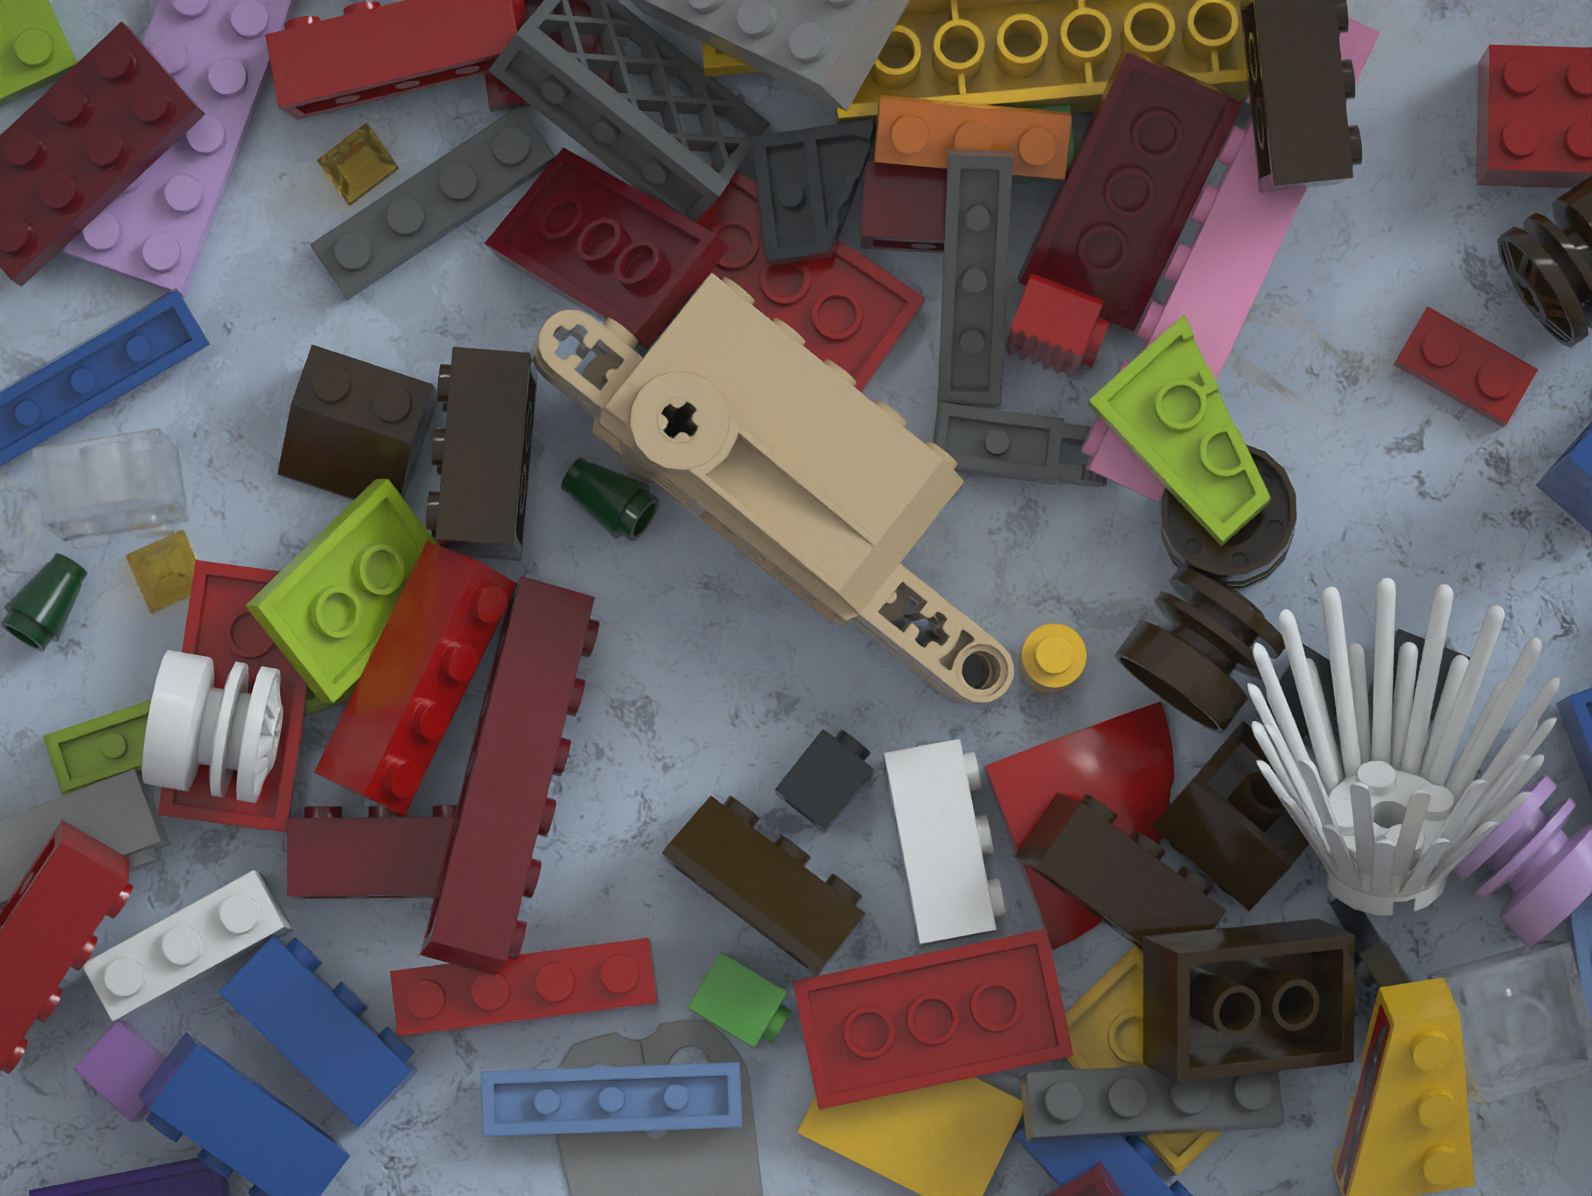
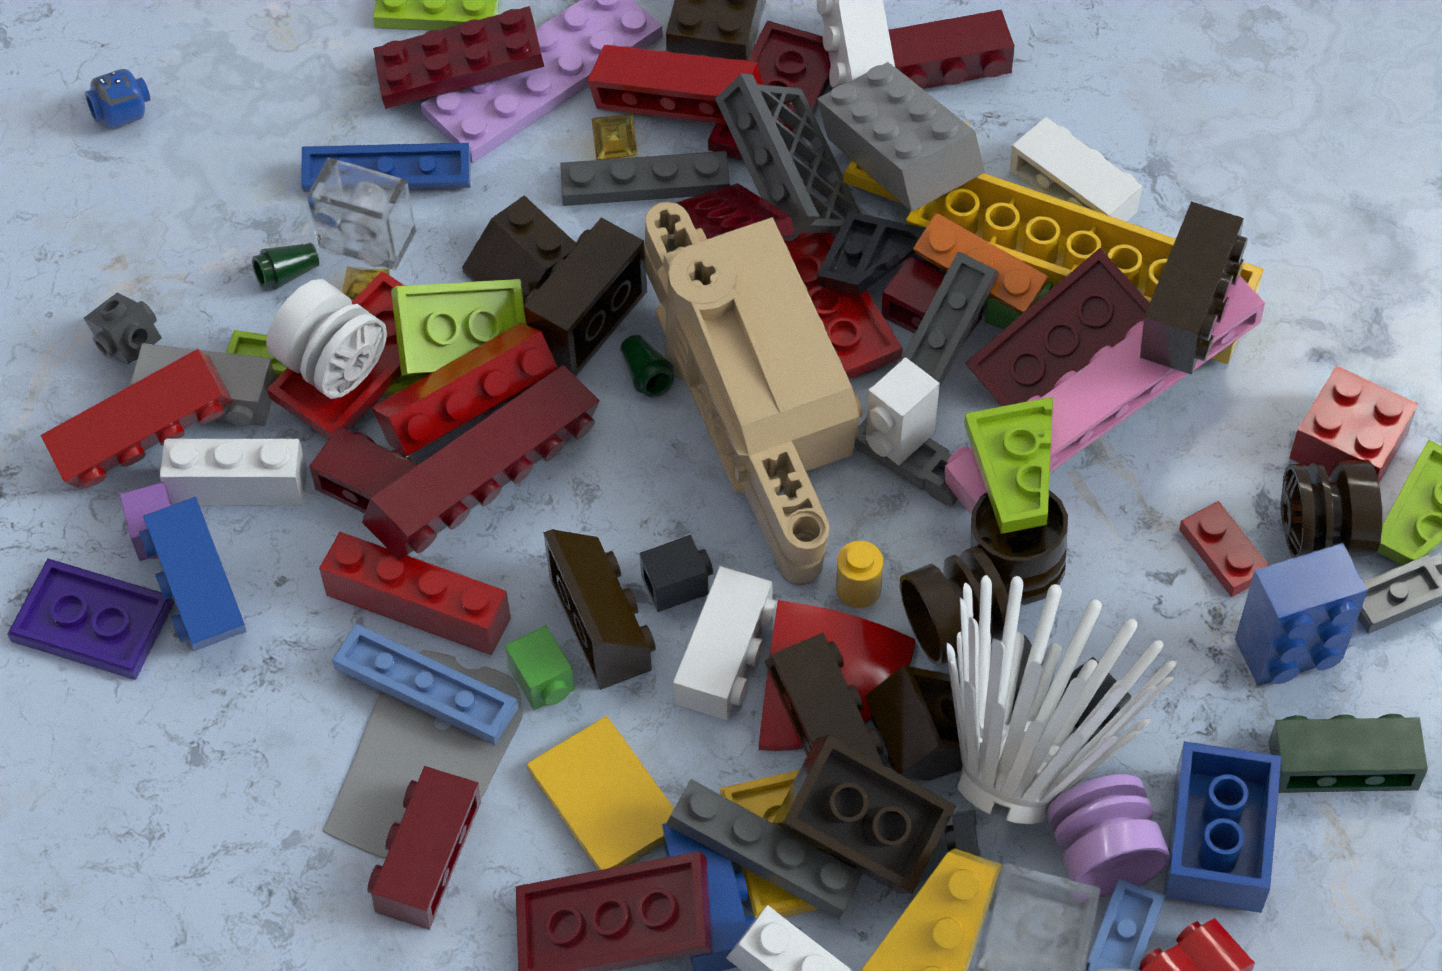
camera: 30 degrees right, 25 degrees down
(320, 1029) = (279, 556): blue brick -> none
(932, 1018) = (652, 732): red plate -> none
(996, 424) = (901, 411): none -> white brick
(1057, 327) = (969, 384): red brick -> none

